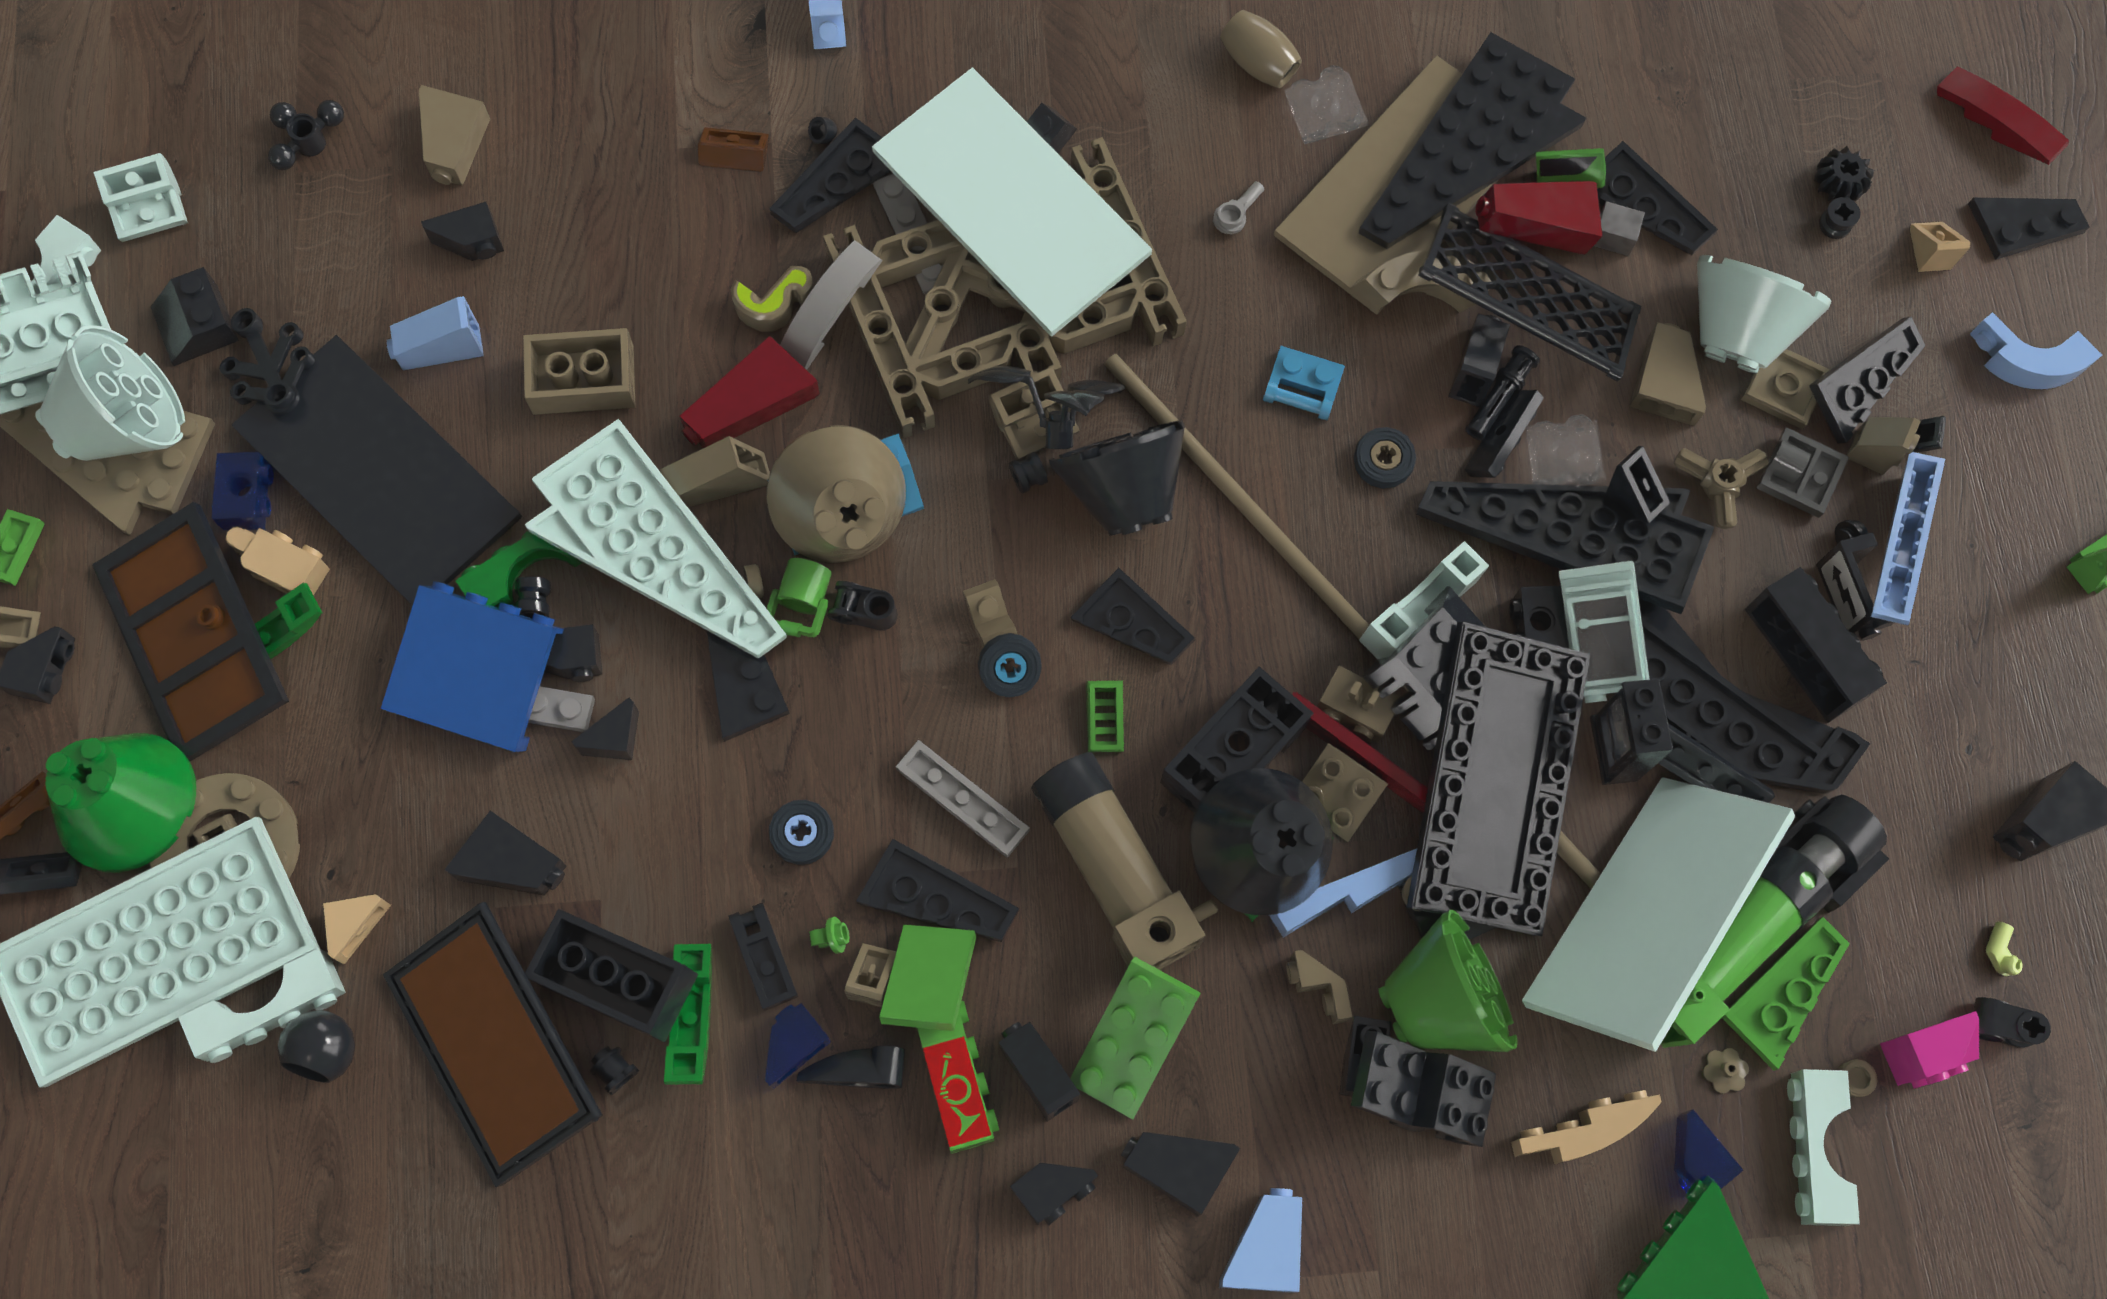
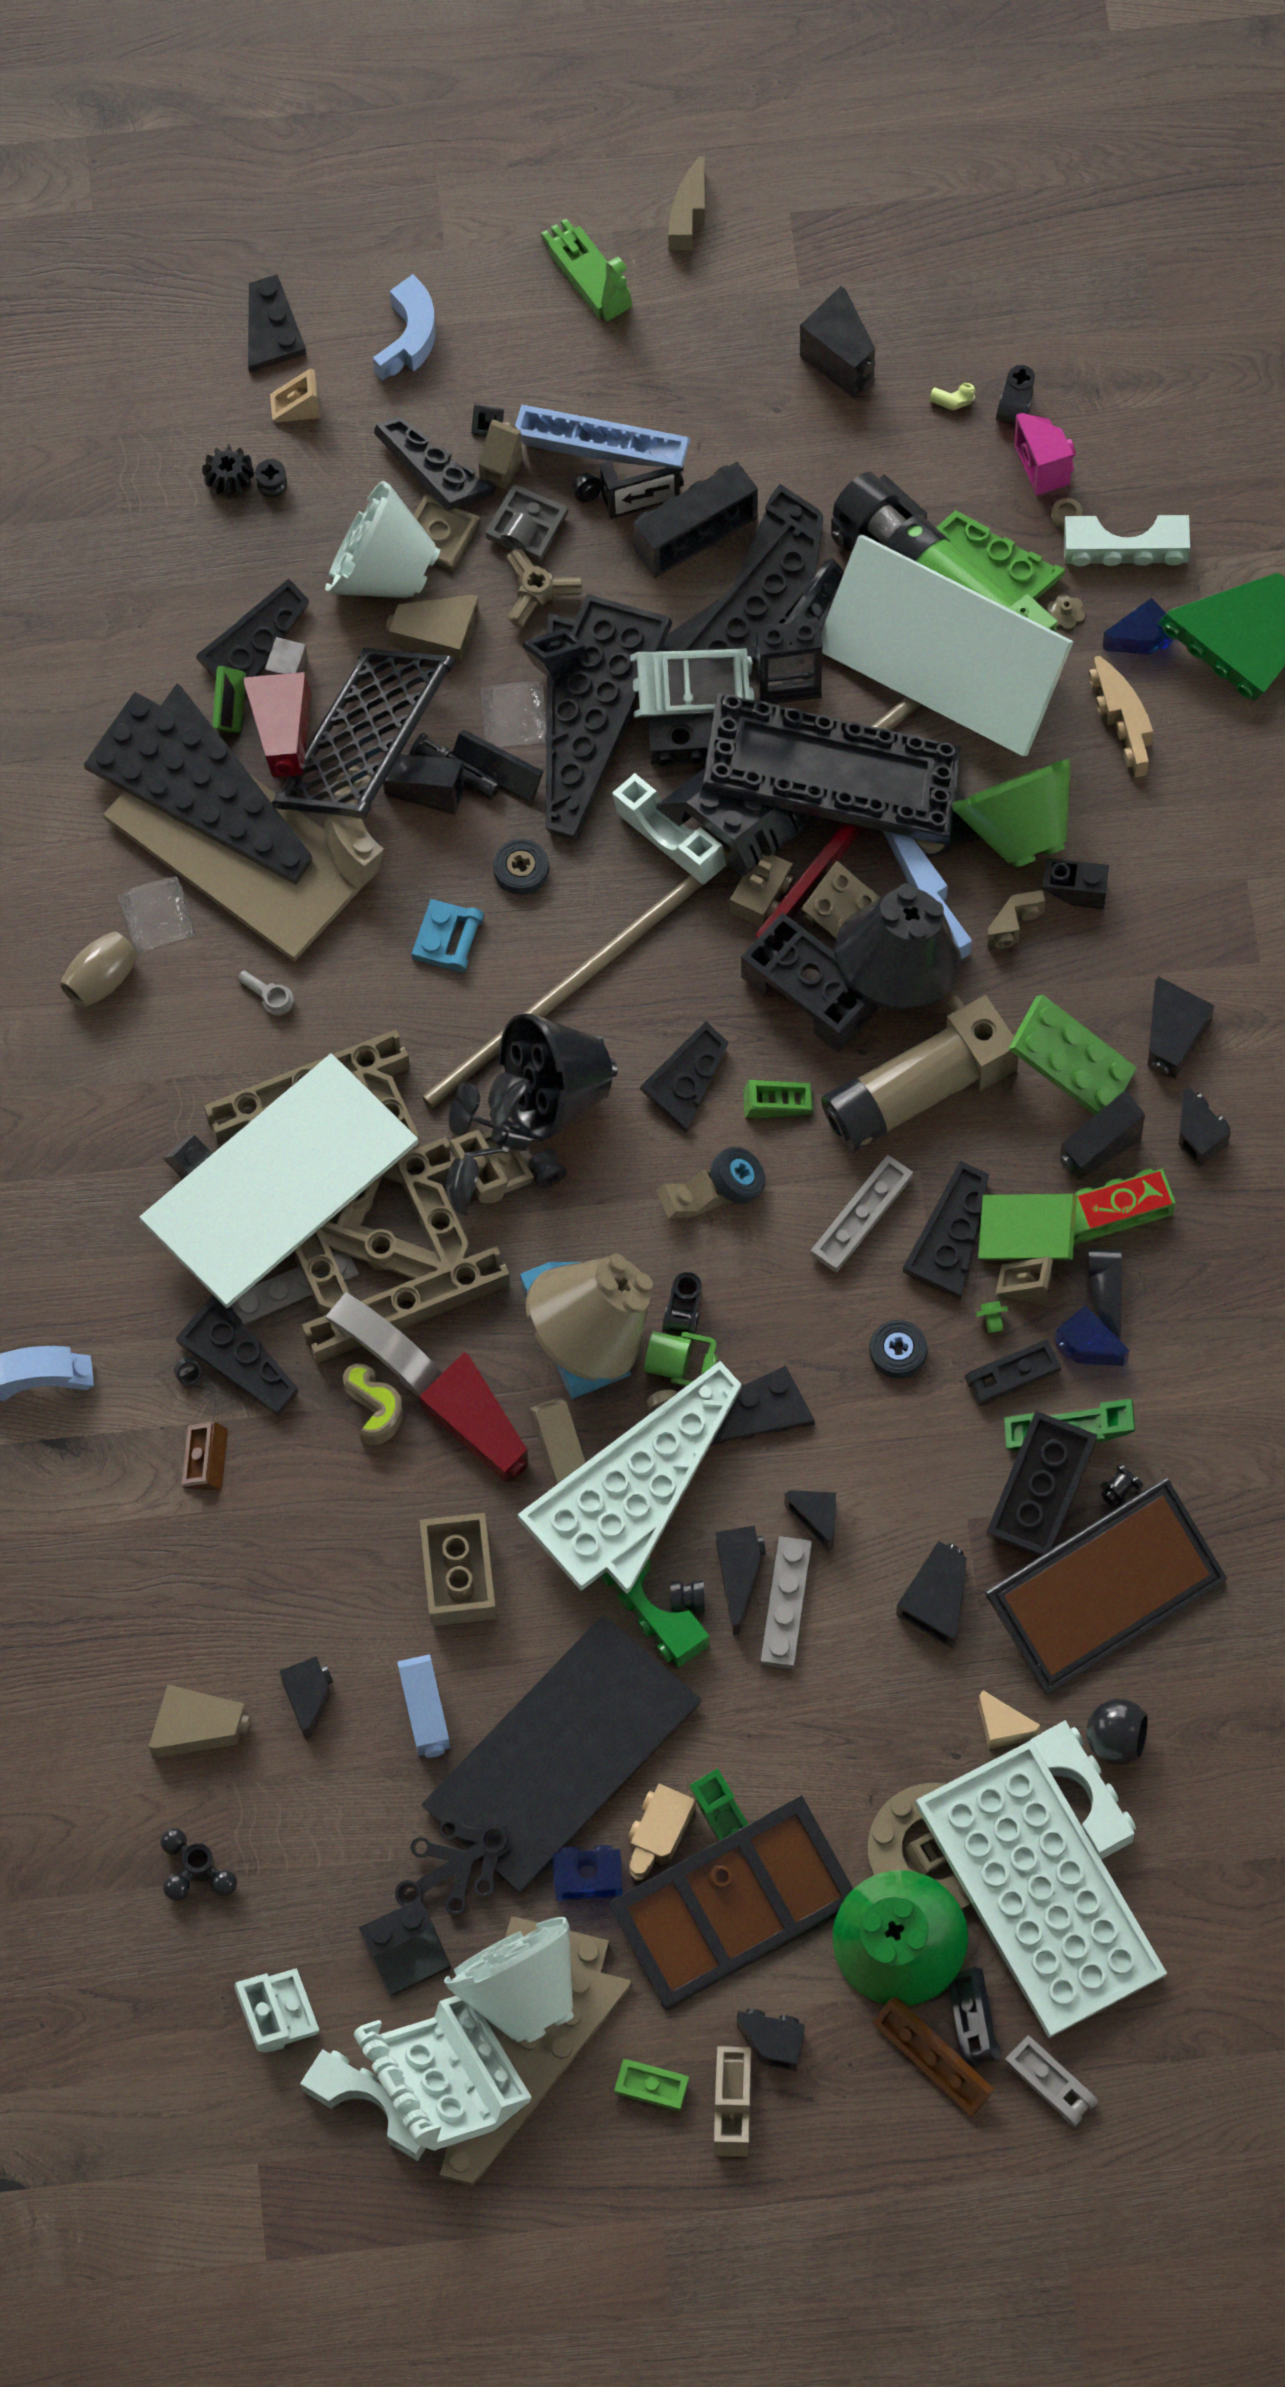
camera: 85 degrees left, 5 degrees down
(470, 666) = (762, 1631): blue panel -> none
(1269, 1246) = (1235, 959): light blue slope -> none
(1423, 1090) = (1102, 831): black piece -> none
(2005, 115) = (163, 334): dark red slope -> none

